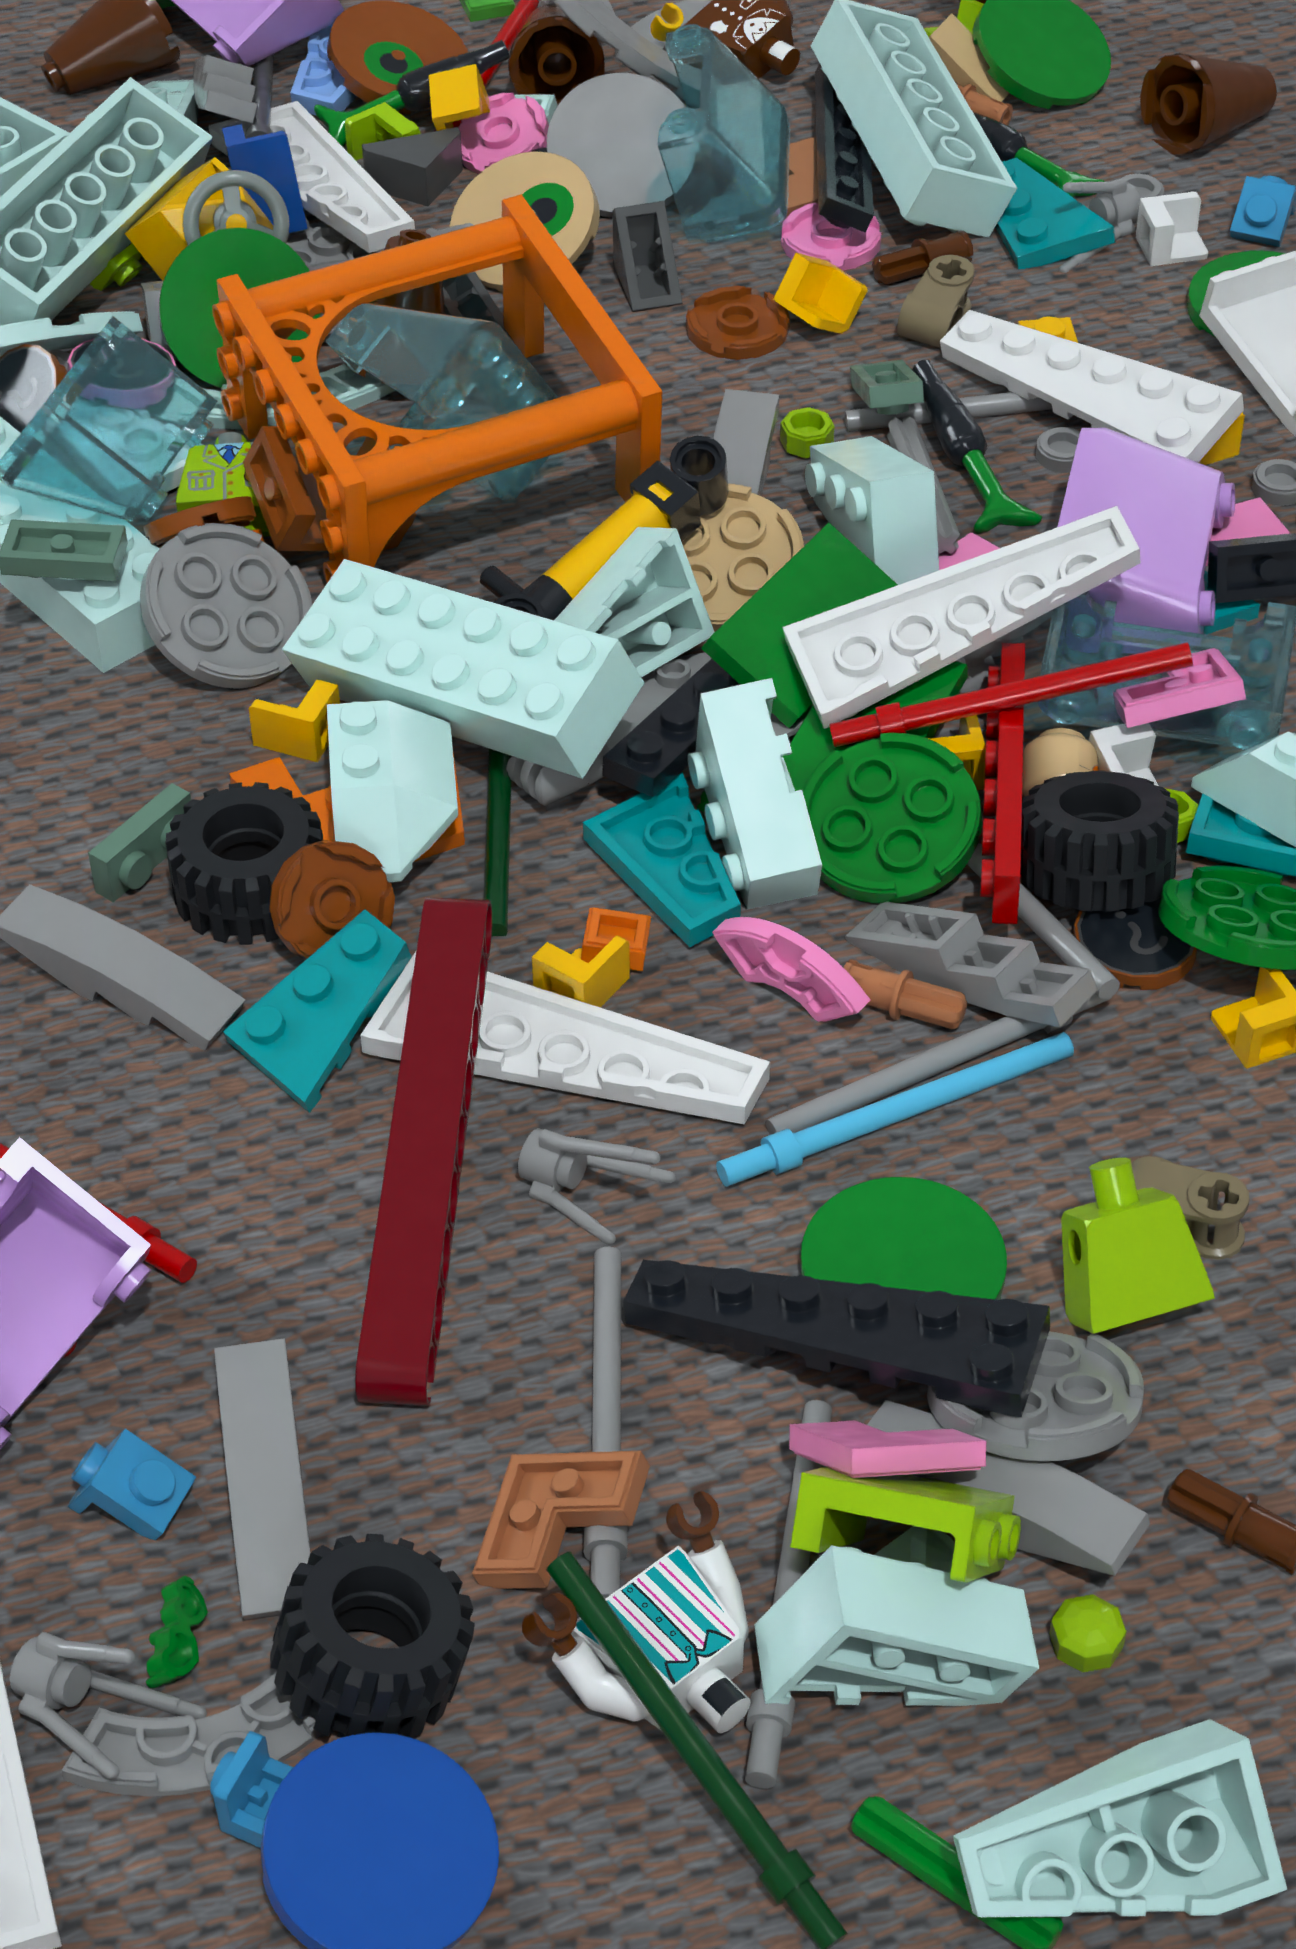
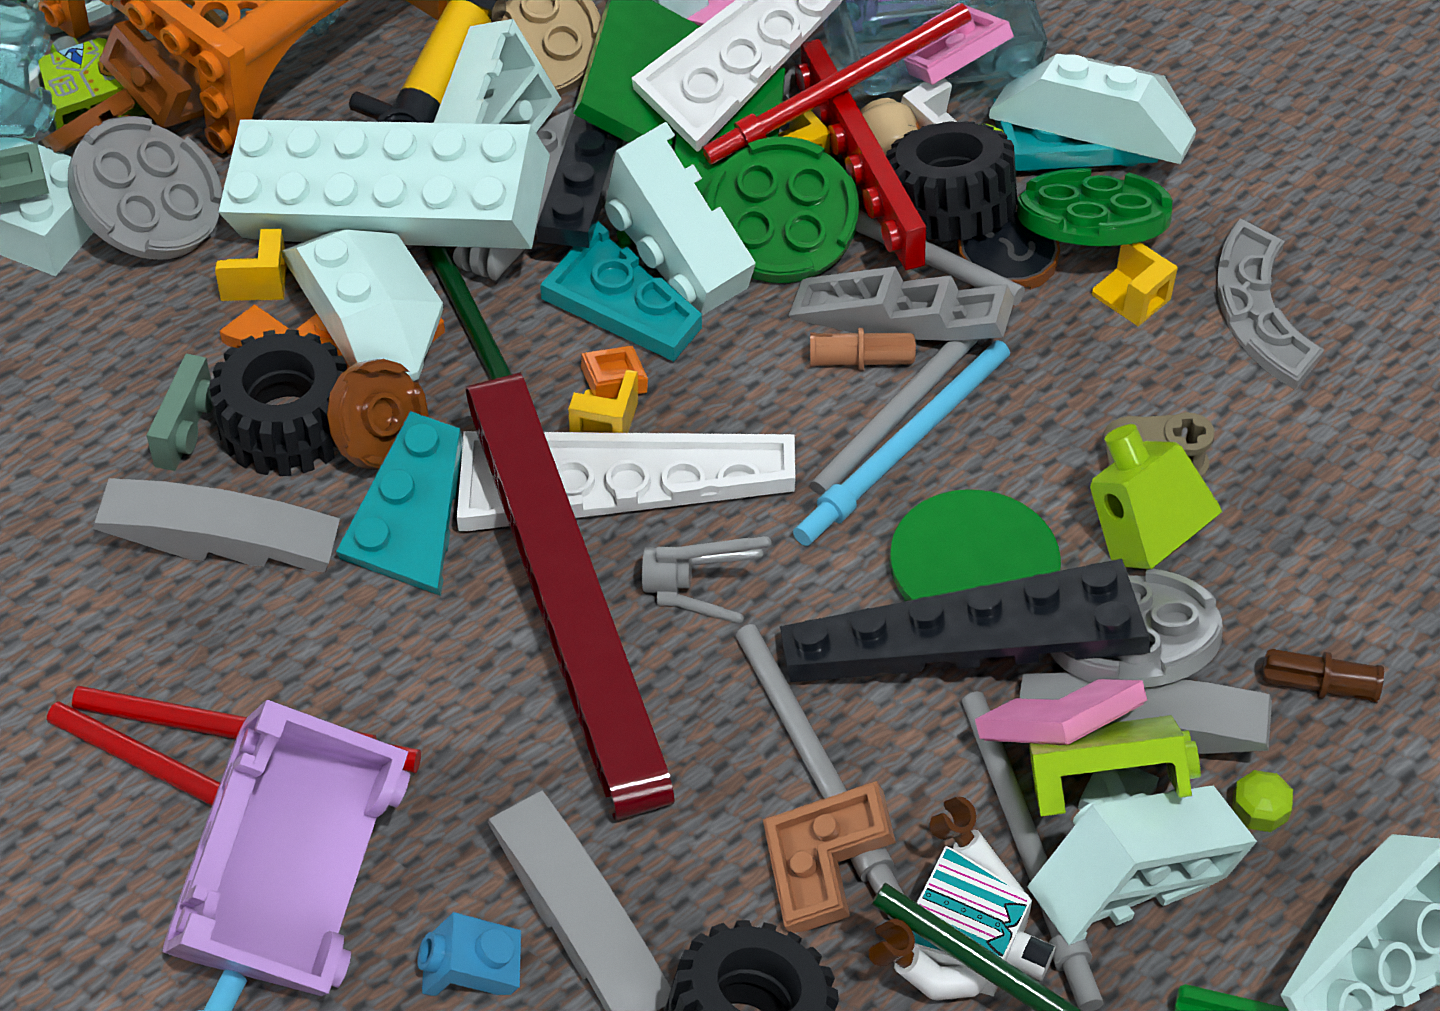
camera: 25 degrees left, 5 degrees up
(791, 963) = (770, 350): bright pink tile -> none

